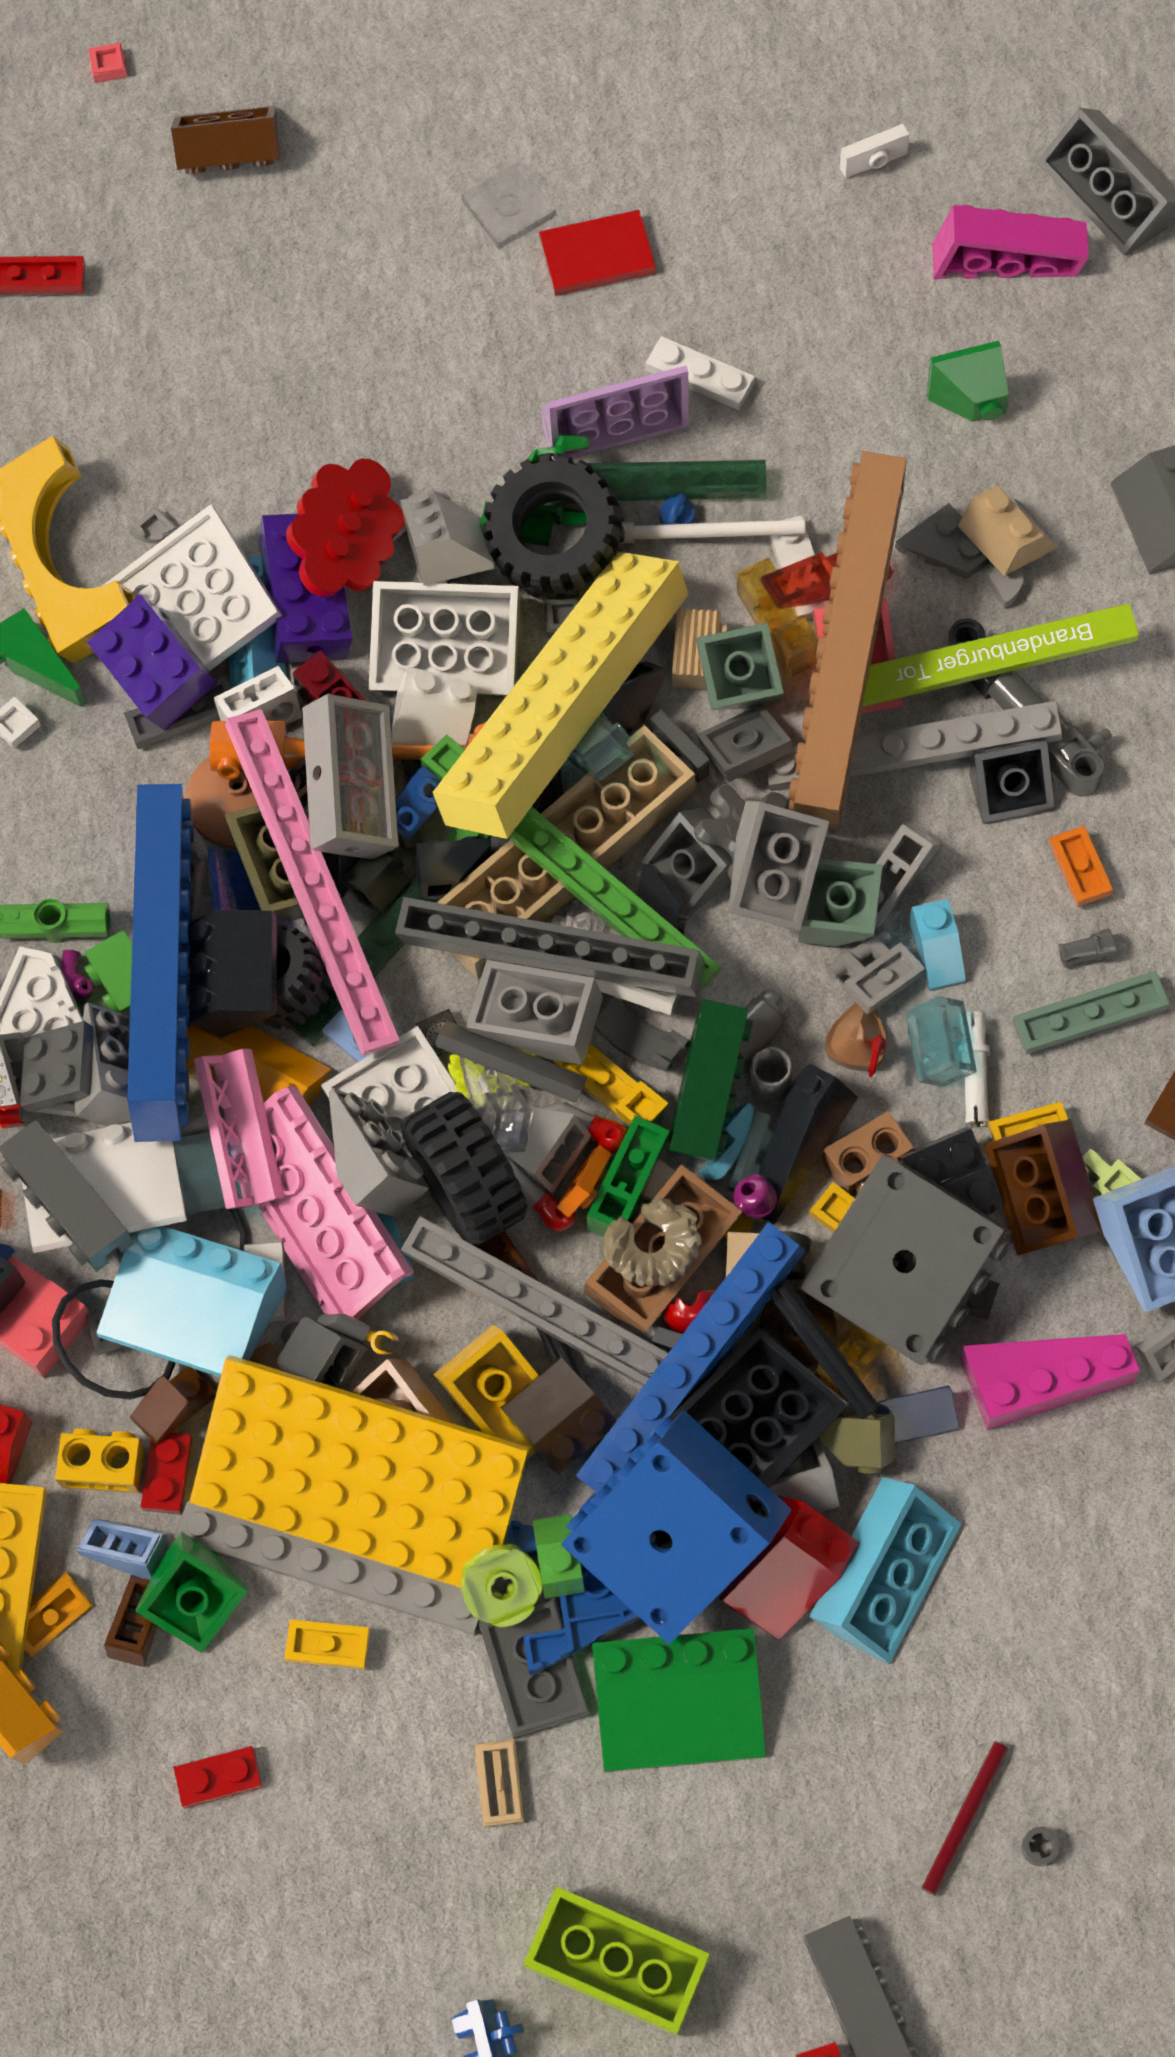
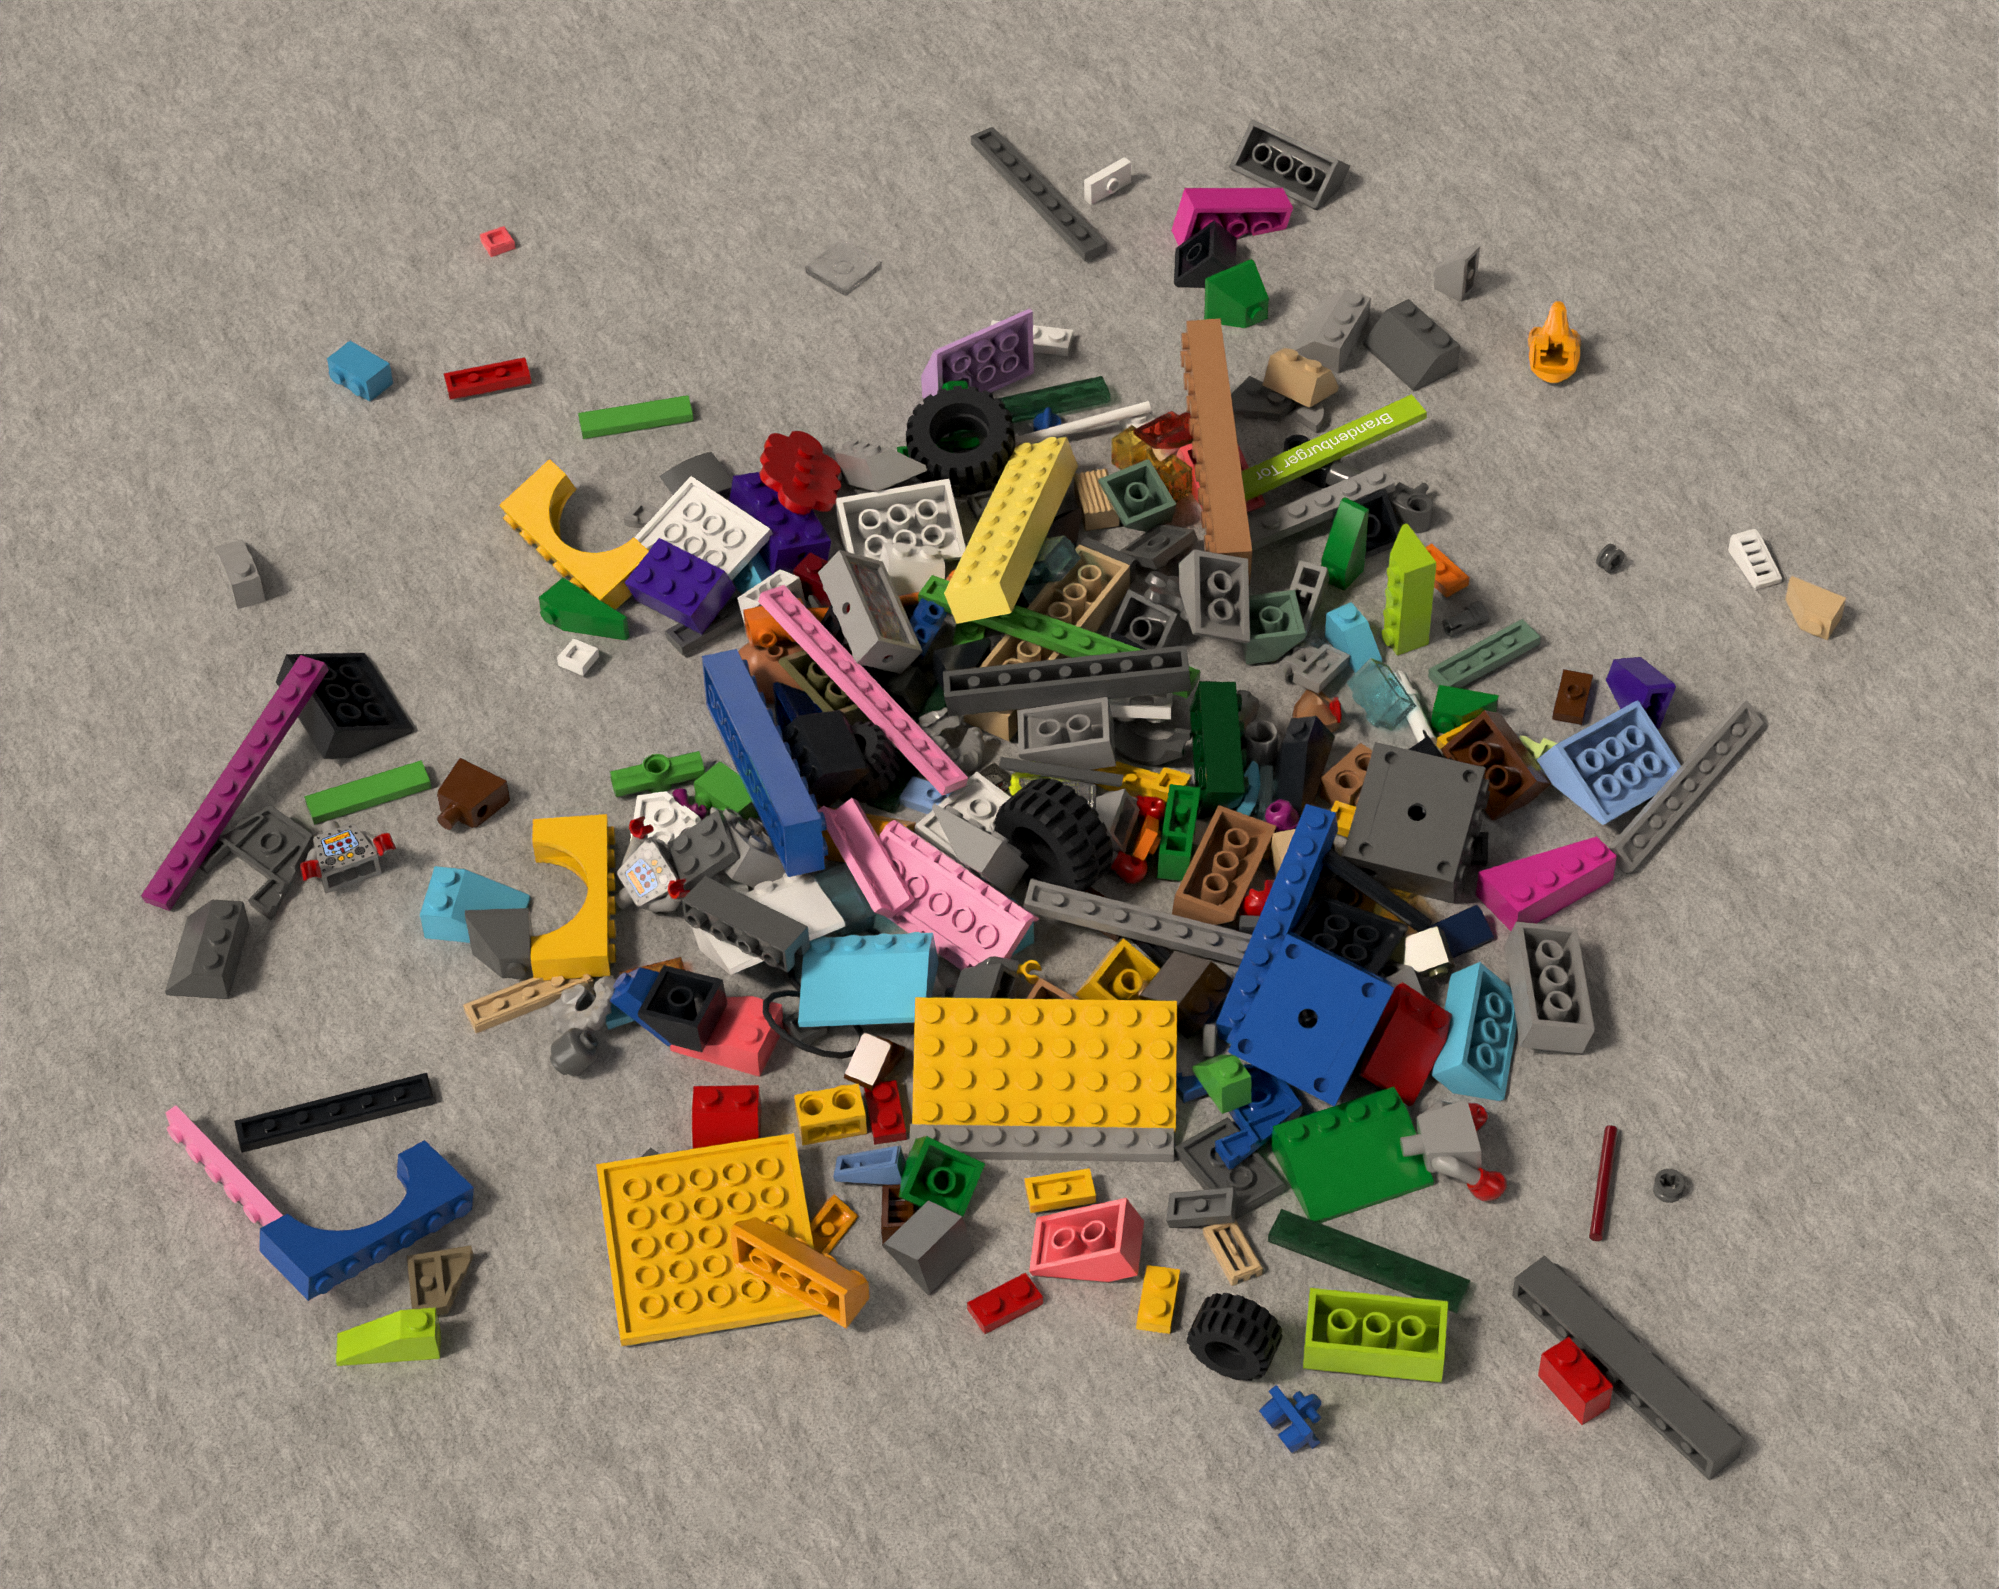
camera: 20 degrees left, 20 degrees down
(150, 1681) = (930, 1245): none -> dark grey slope
(190, 376) = (635, 417): none -> bright green tile
(226, 139) = (611, 266): reddish brown slope -> none
(236, 490) = (704, 469): none -> dark grey slope
(334, 1729) = (1089, 1243): none -> coral slope
(392, 1824) = (1158, 1299): none -> yellow plate
(397, 994) = (969, 754): none -> light grey piece
(449, 1923) = (1234, 1336): none -> black tyre
(480, 1718) = (1201, 1207): none -> dark grey plate
(521, 1595) = (1168, 1114): lime plate -> none
(568, 1481) = (1209, 1037): none -> light grey tile
(597, 252) = (922, 282): red tile -> none
(651, 1845) = (1367, 1260): none -> clear green plate
(661, 1266) = (1230, 866): dark tan piece -> none
(783, 149) = (1039, 193): none -> dark grey plate
(790, 1729) = (1452, 1147): none -> light grey torso
(955, 306) = (1204, 255): none -> black slope
(968, 814) = (1346, 544): none -> green slope
(991, 1534) = (1549, 987): none -> light grey brick
(1012, 917) = (1408, 593): none -> lime slope
(1031, 1085) = (1458, 706): none -> green slope
(1074, 459) = (1334, 329): none -> light grey slope

